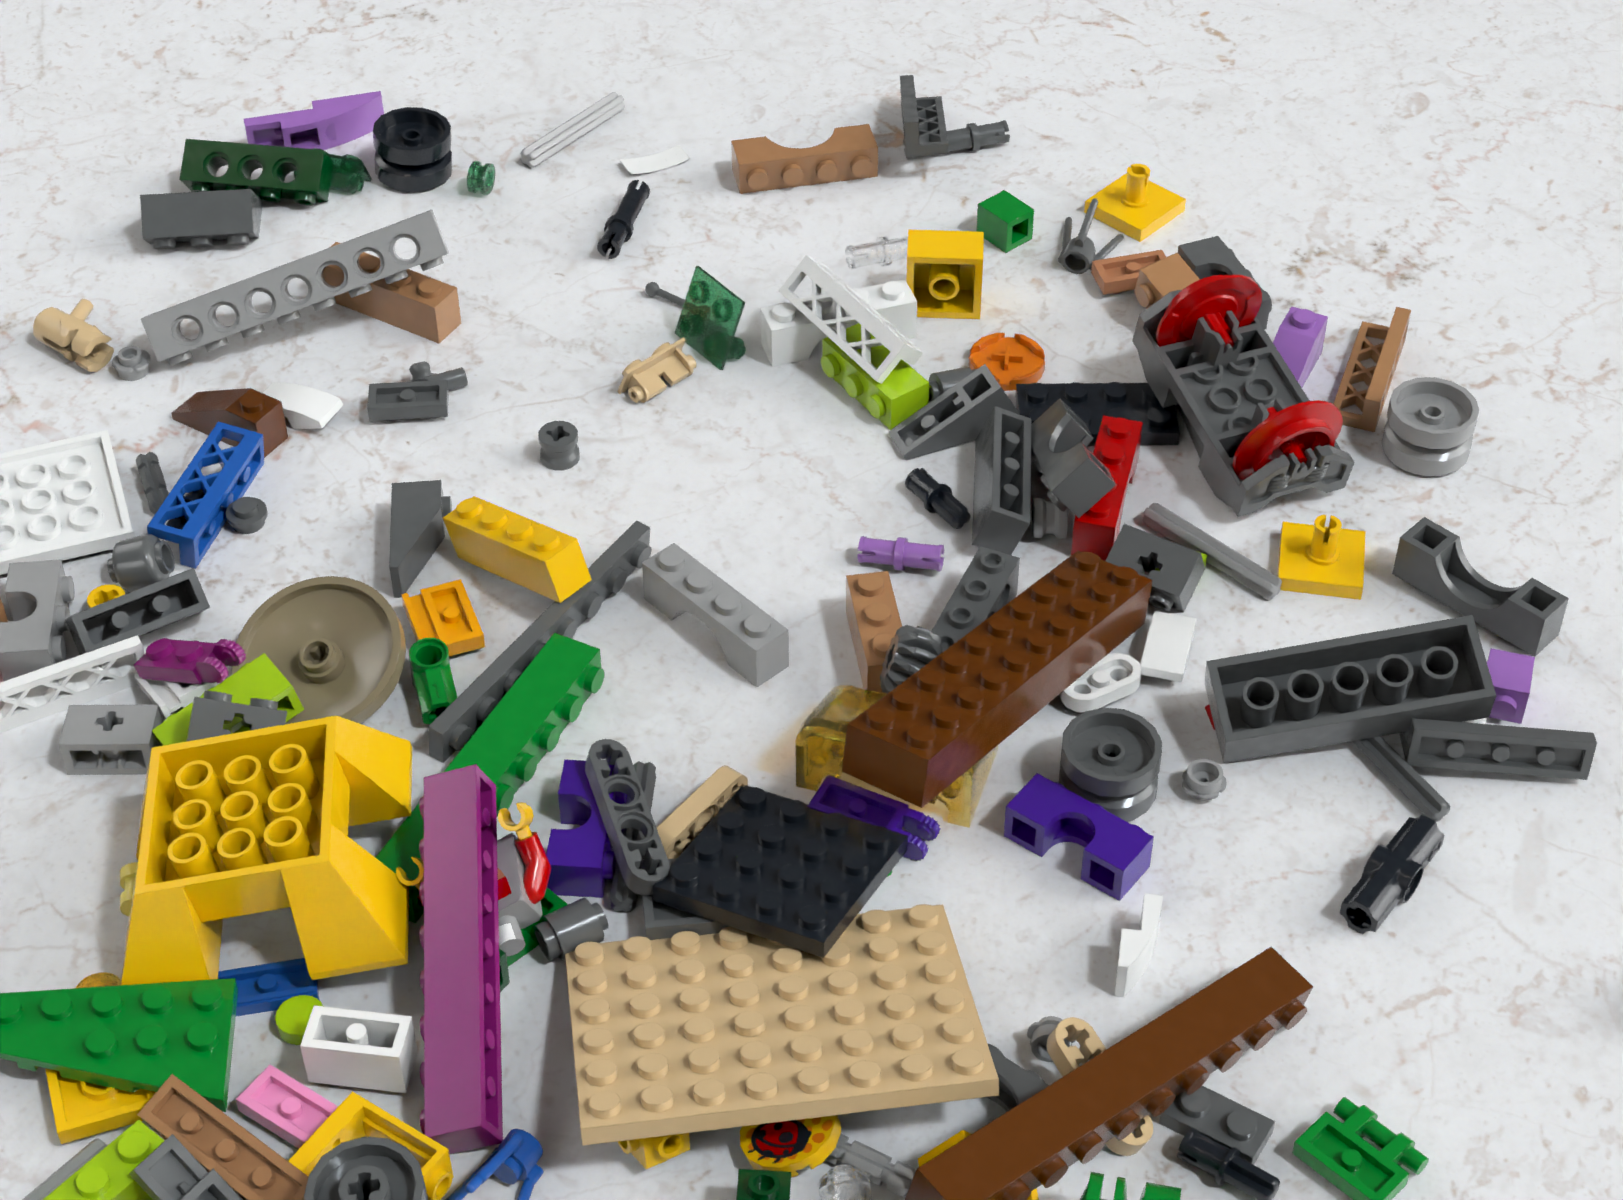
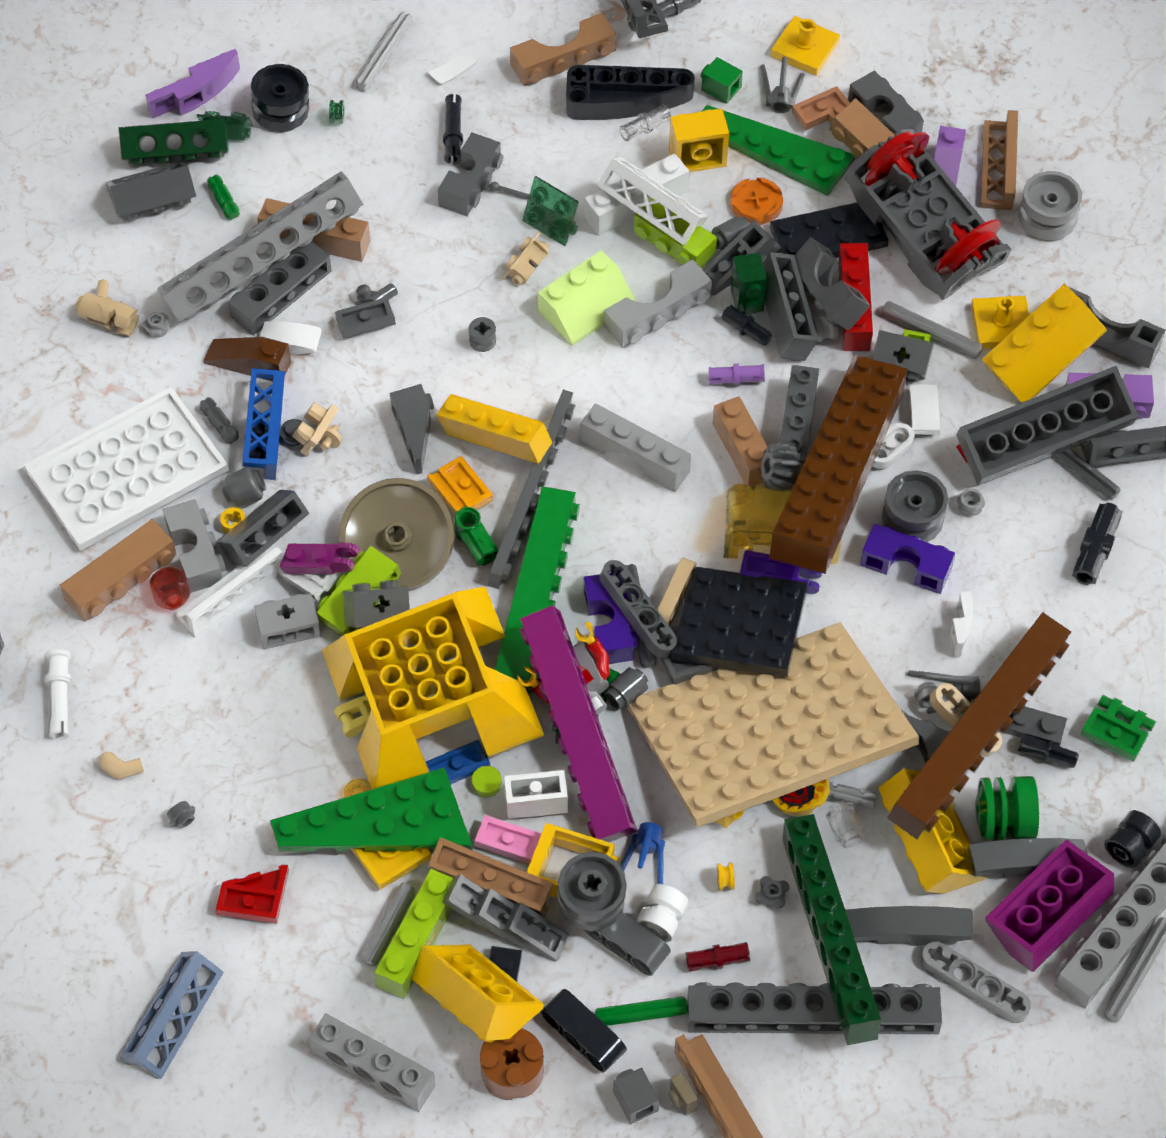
camera: 15 degrees left, 15 degrees up
(282, 517) = (311, 436): none -> tan hips
(291, 239) = (223, 197): none -> green axle
(313, 344) = (279, 287): none -> dark grey brick
(607, 283) = (463, 191): none -> dark grey arch
(719, 426) = (578, 298): none -> yellowish green slope
(777, 464) = (632, 320): none -> light grey arch
(859, 211) = (624, 91): none -> black beam
(954, 441) = (748, 283): none -> dark green brick
(1069, 316) = (788, 153): none -> green wing
(1109, 1031) = (967, 685): none -> dark grey plant
(1375, 579) = (1044, 344): none -> yellow slope

